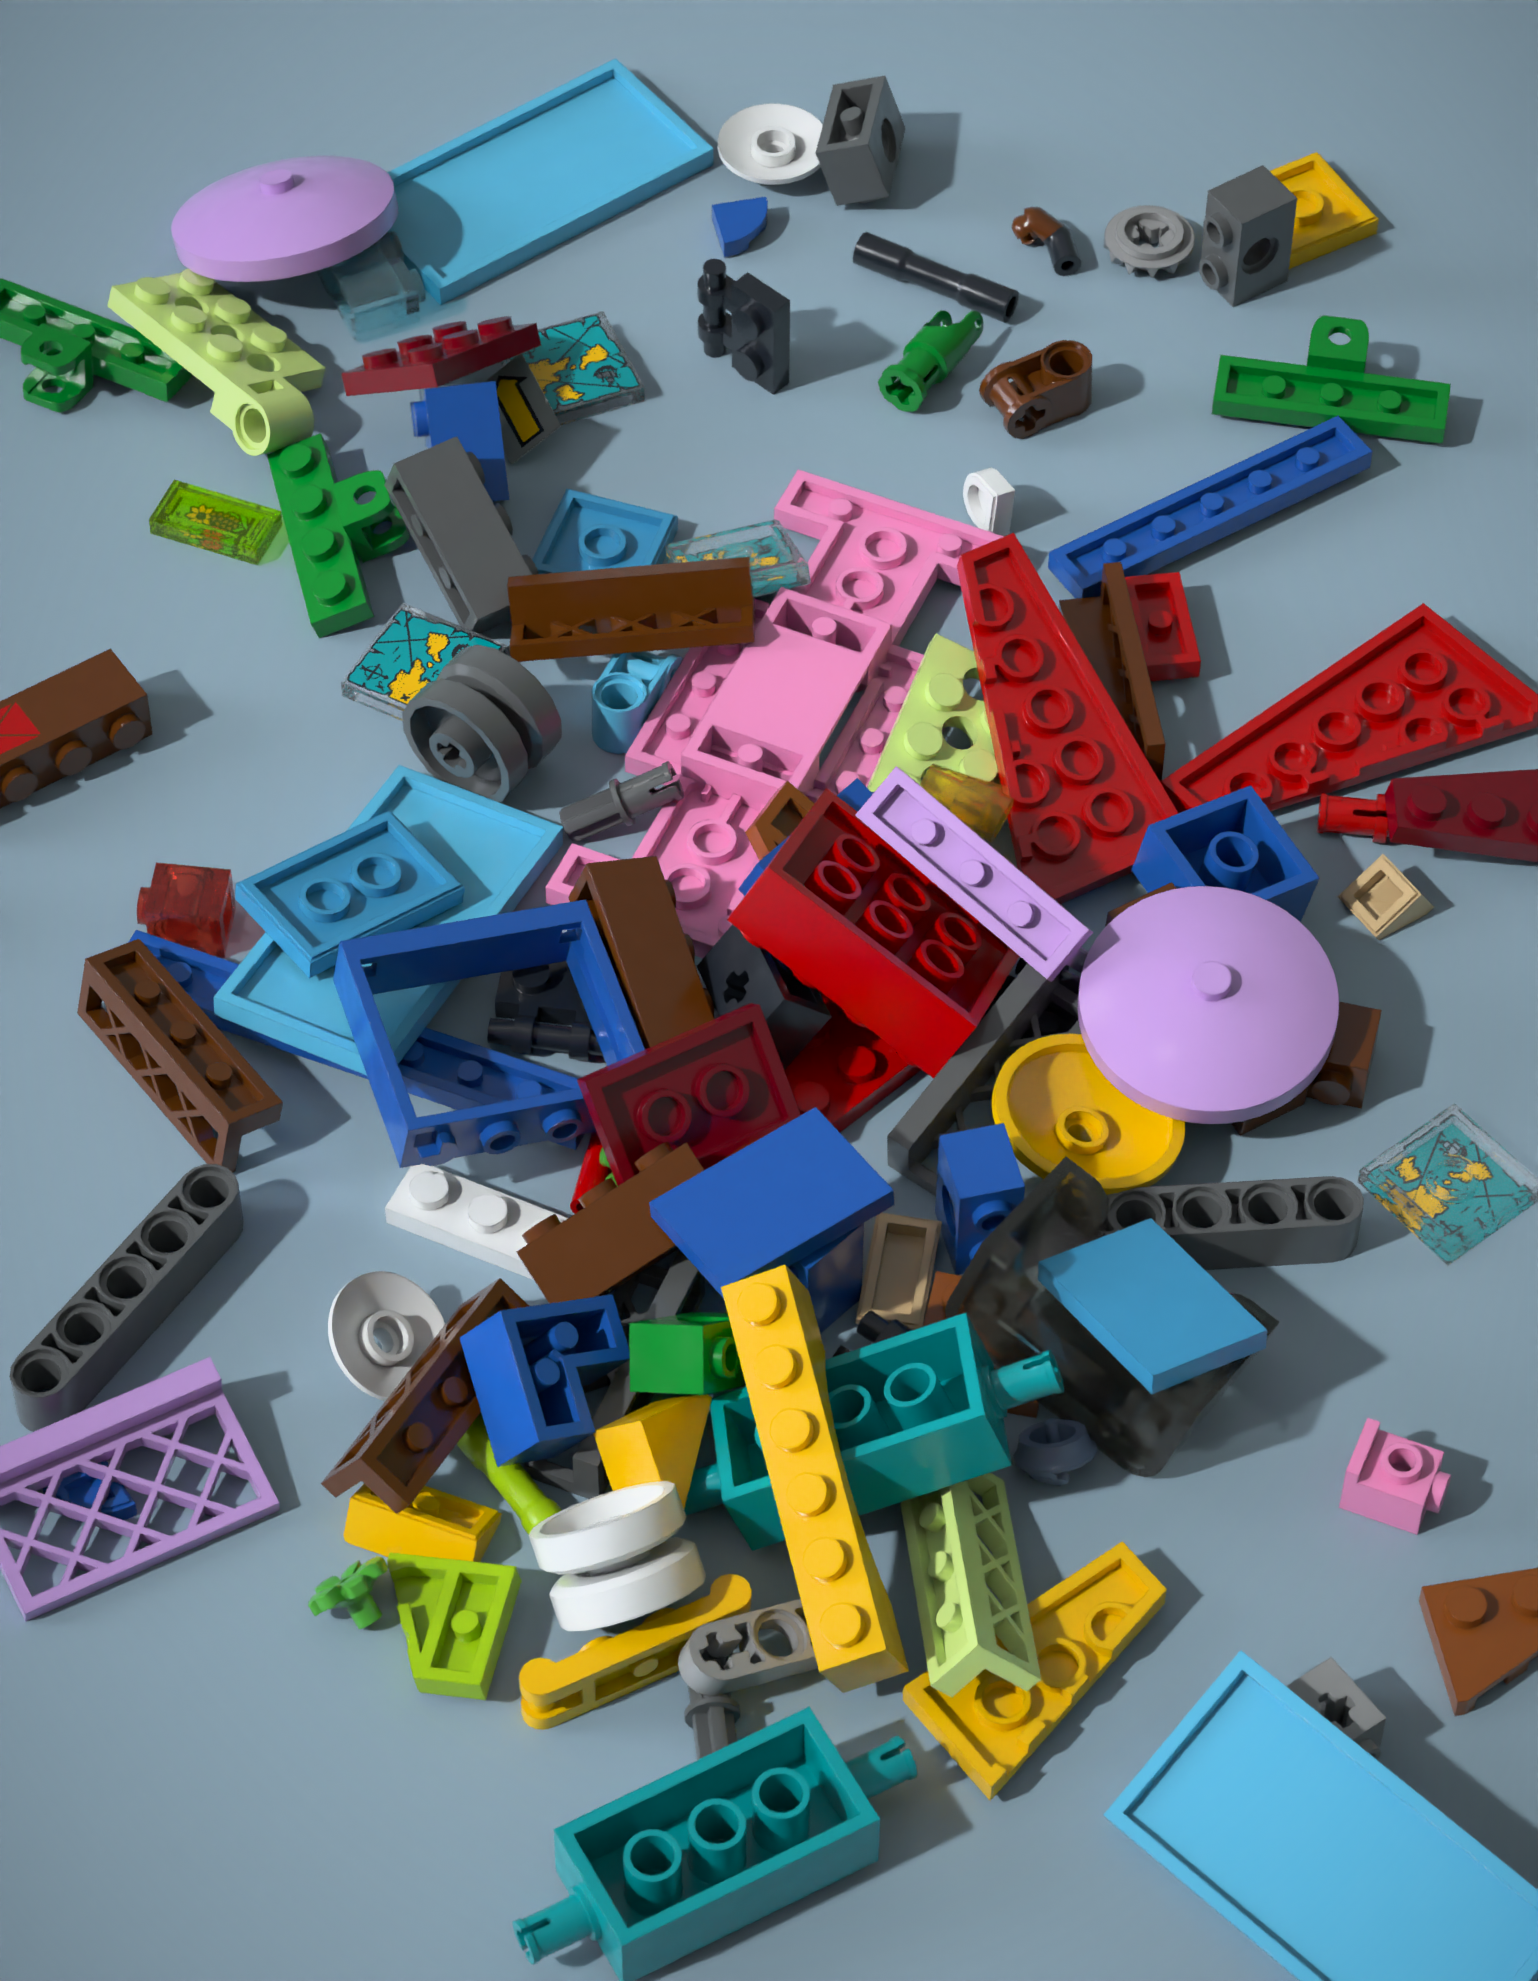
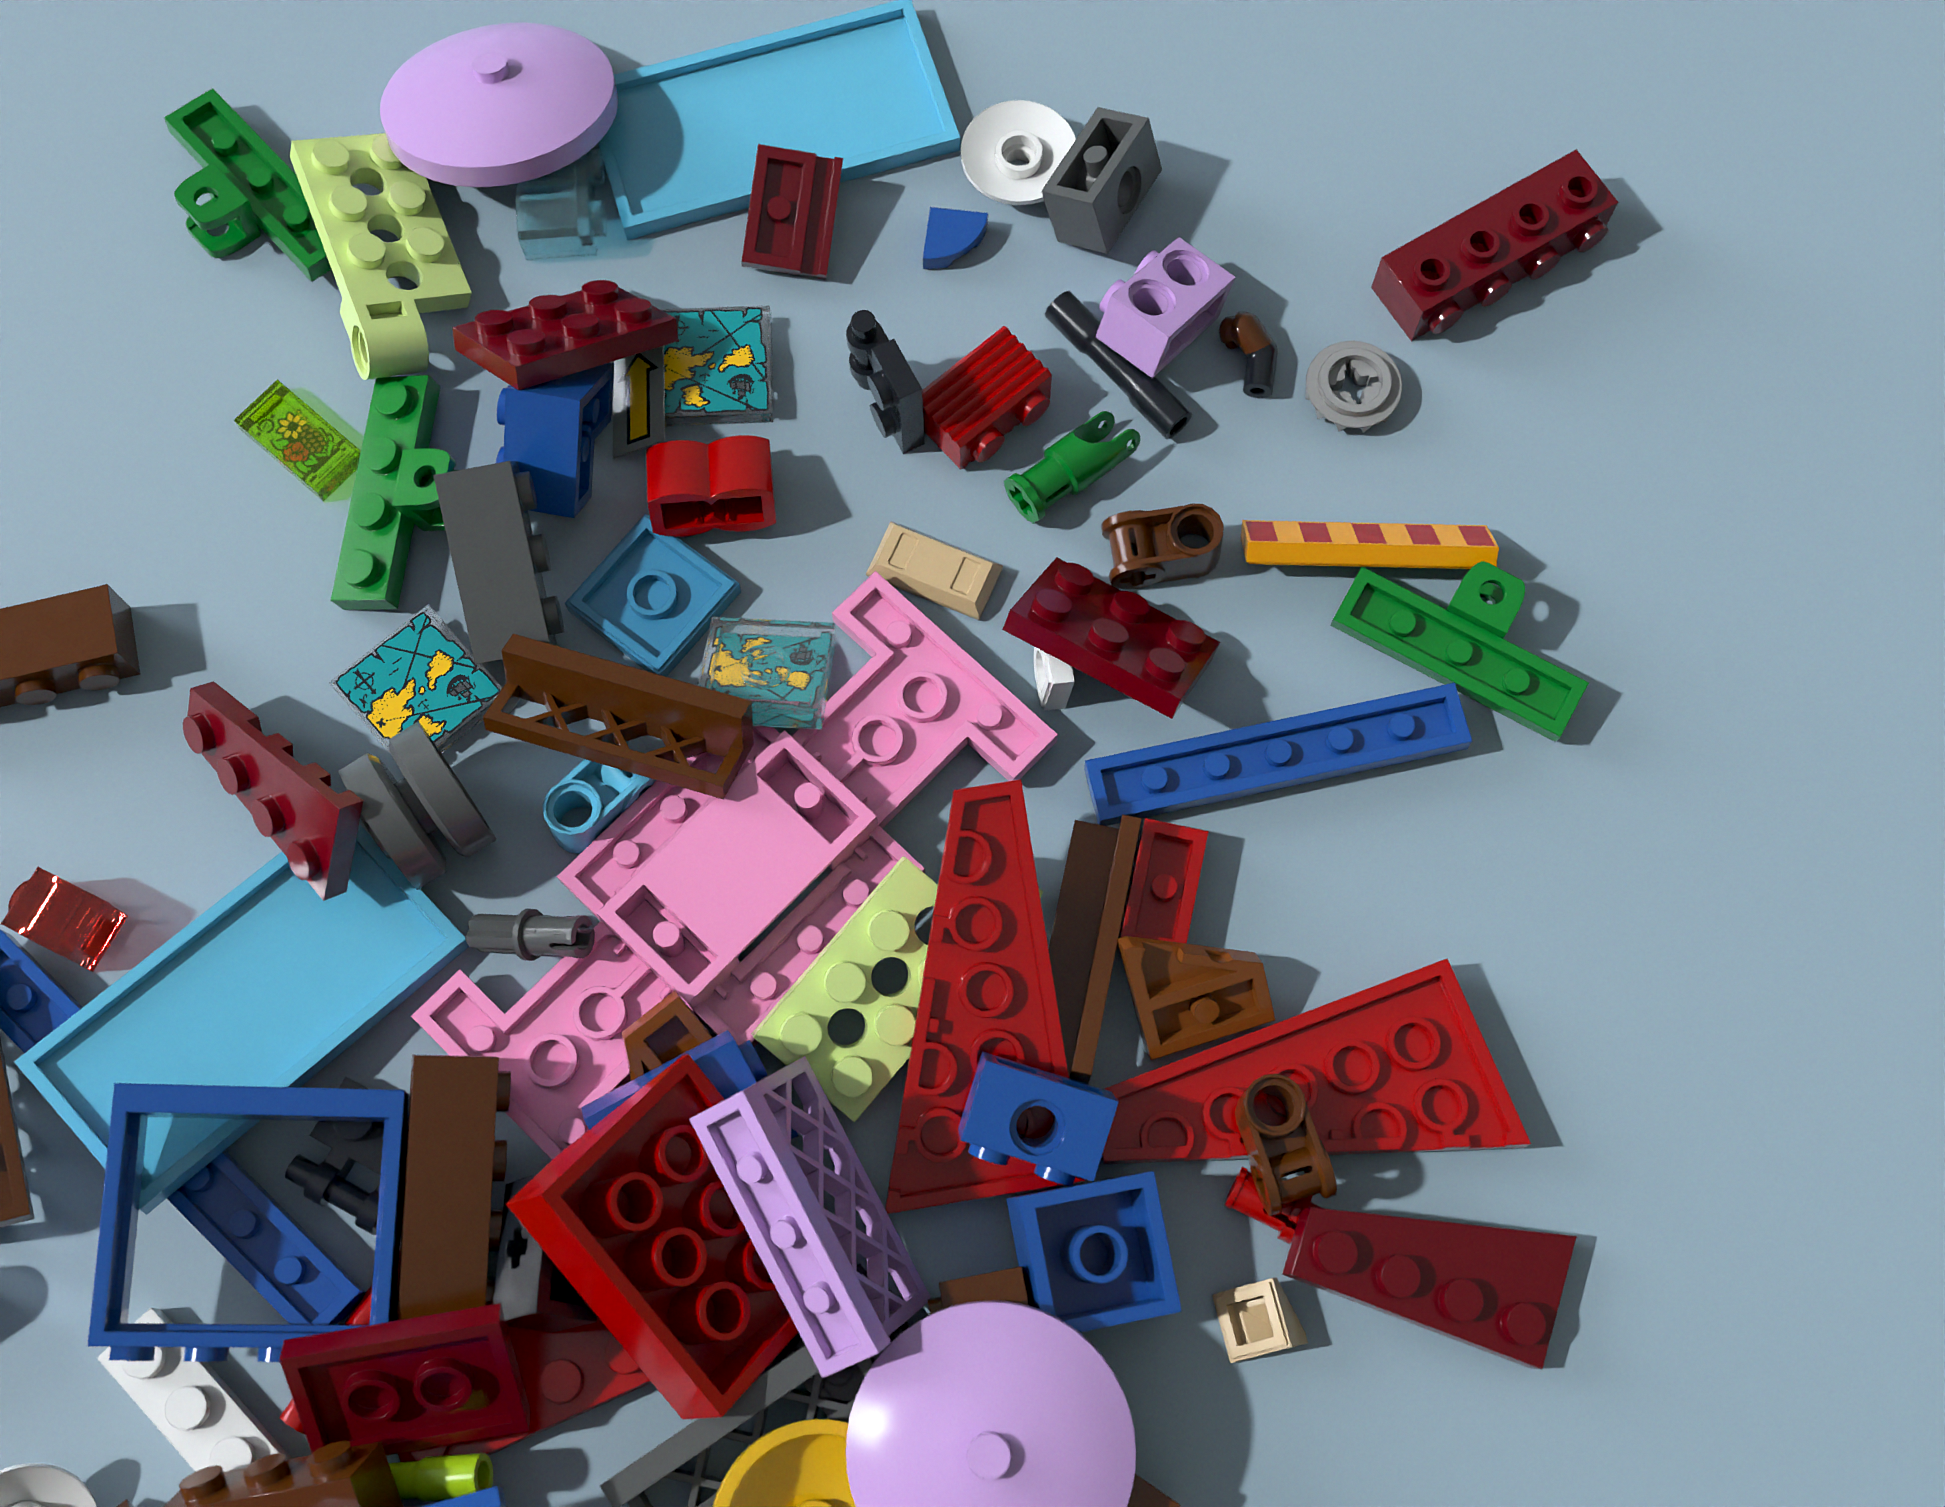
camera: 20 degrees right, 20 degrees up
(348, 889) = (206, 968): dark azure tile -> none
(363, 746) = (285, 798): none -> dark red wing
(591, 236) = (791, 212): none -> dark red plate
(614, 449) = (710, 486): none -> red brick
(835, 324) = (985, 398): none -> red brick
(856, 463) = (935, 570): none -> tan tile
(959, 216) = (1163, 306): none -> lavender brick
(971, 799) = (855, 1078): clear yellow cone -> none
(1030, 453) = (1112, 636): none -> dark red plate
(1163, 762) = (1078, 1129): none -> blue brick
(1211, 344) = (1367, 544): none -> light orange tile
(1219, 682) = (1192, 992): none -> dark orange wing
(1222, 108) = (1494, 246): none -> dark red brick
(1247, 236) = (1446, 429): dark grey brick -> none
(1326, 209) = (1525, 395): yellow tile -> none
(1345, 745) = (1284, 1148): none -> reddish brown piece

